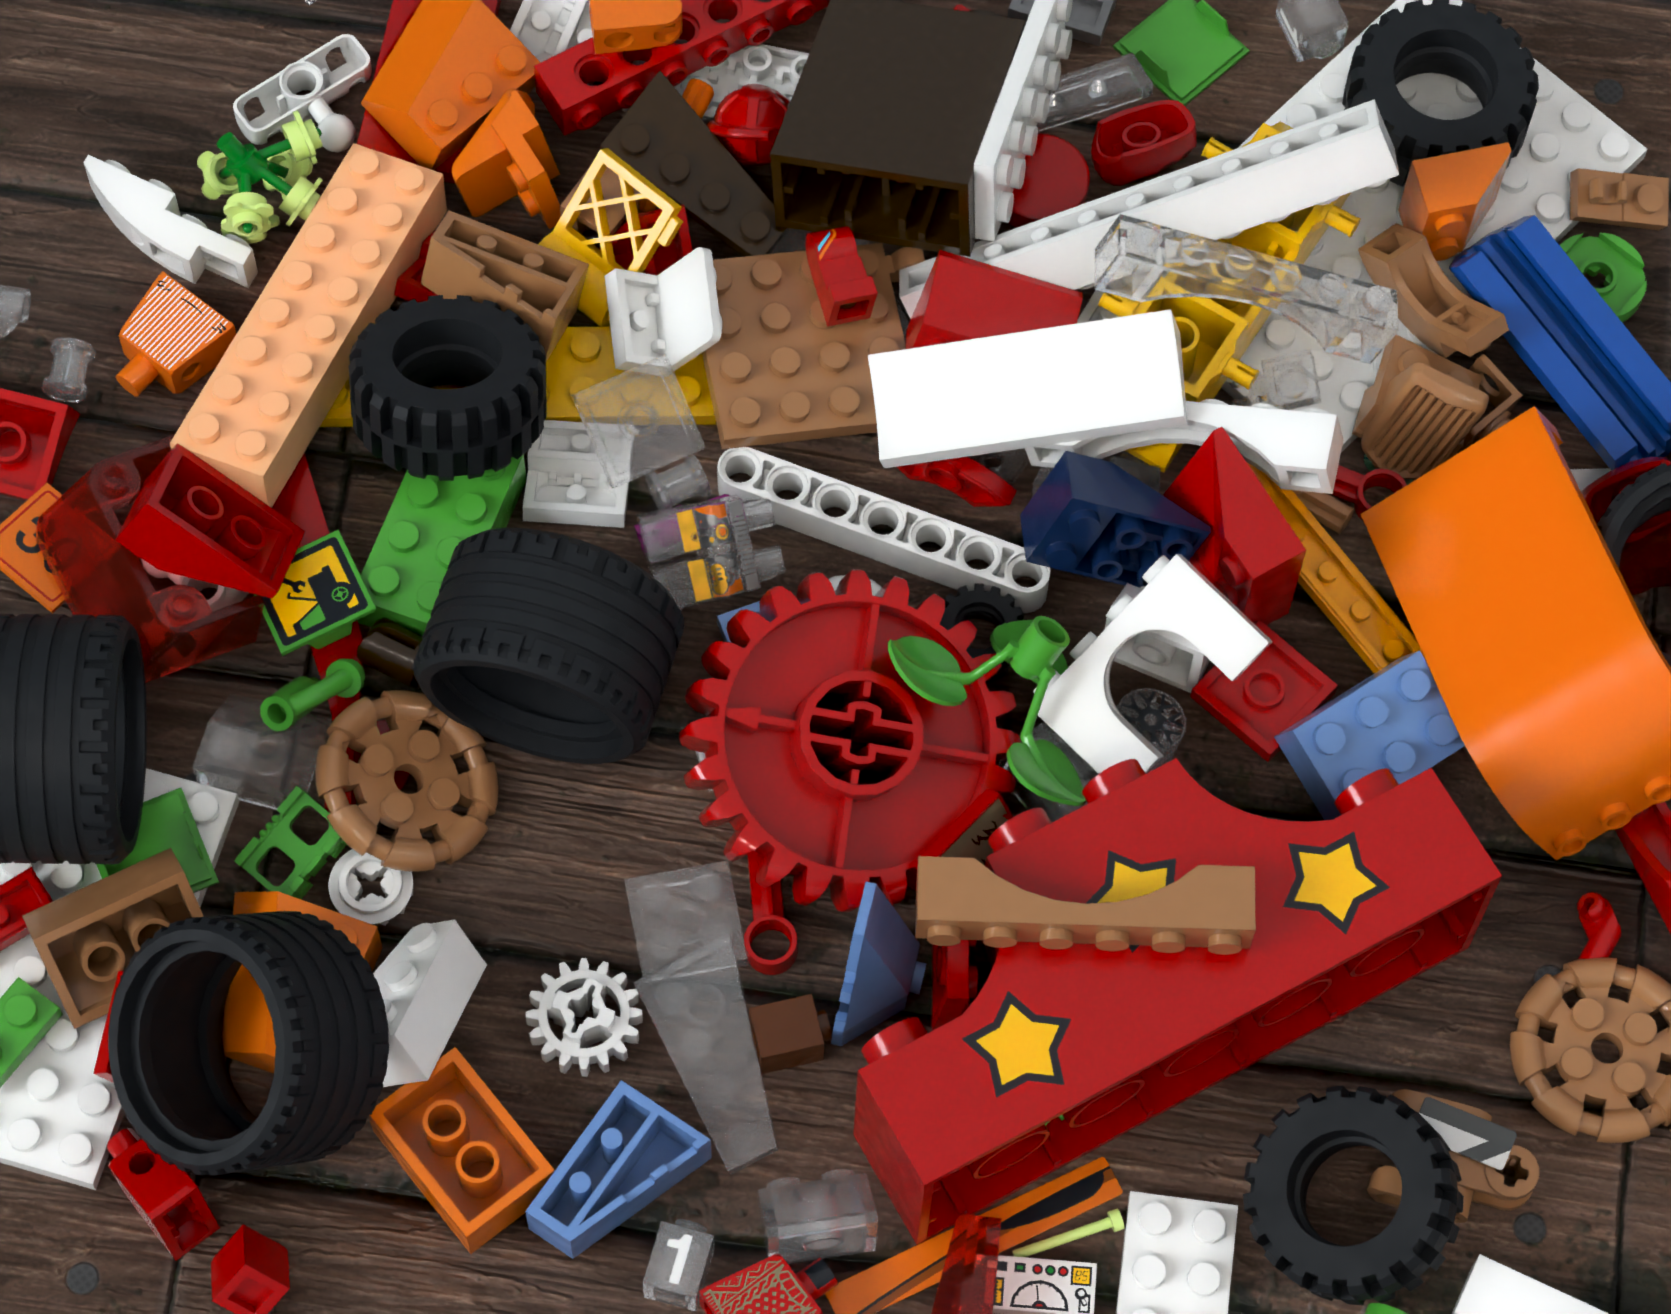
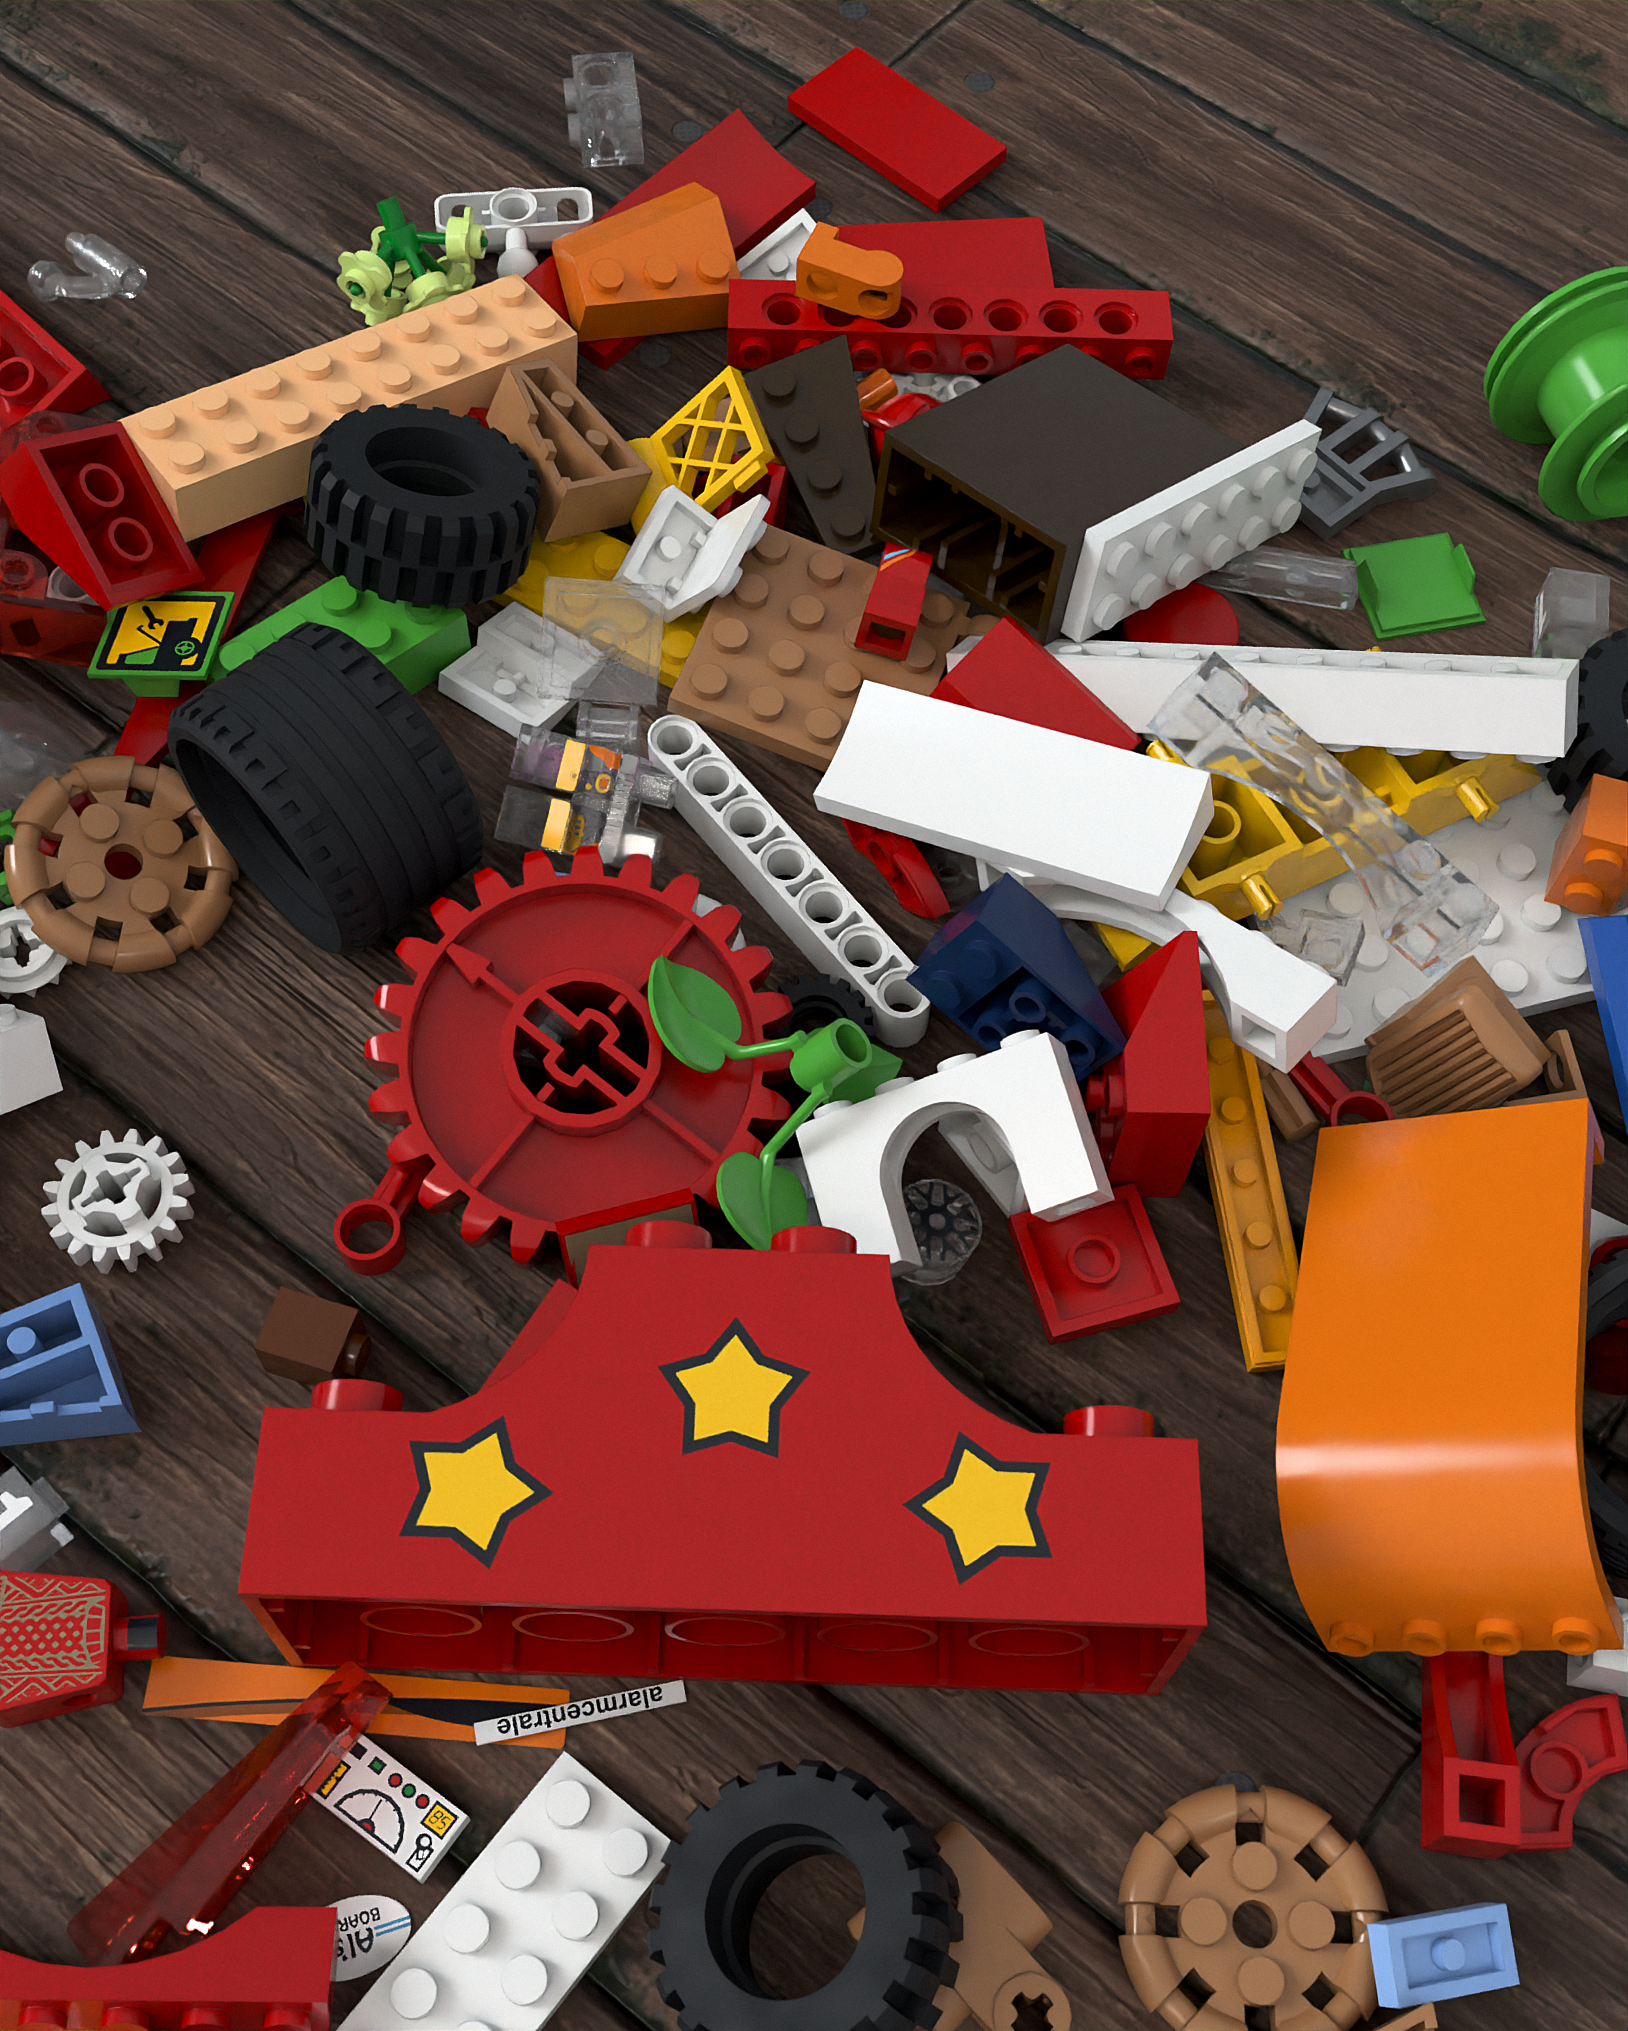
camera: 30 degrees right, 5 degrees down
(68, 370) = (122, 349): clear bush -> none
(152, 222) = (302, 268): white slope -> none
(171, 339) = (222, 350): orange torso -> none
(304, 694) = (92, 732): bright green plant -> none
(508, 160) = (651, 354): orange piece -> none
(682, 912) = (301, 1163): clear plate -> none
(710, 1039) = (222, 1286): clear wing -> none
(818, 1216) = (176, 1562): clear slope -> none
(878, 968) = (432, 1309): medium blue wedge -> none
(969, 902) = (783, 1443): medium nougat arch -> none
(1113, 1221) = (526, 1776): yellowish green piece -> none
(1119, 1165) = (579, 1712): none -> white sticker
(1142, 141) = (1312, 627): red piece -> none
(1380, 723) = (1193, 1371): medium blue brick -> none
(1425, 296) = (1533, 935): medium nougat arch -> none
(1469, 1133) = (1004, 1930): dark grey sticker -> none
(1599, 925) = (1335, 1762): red arm -> none

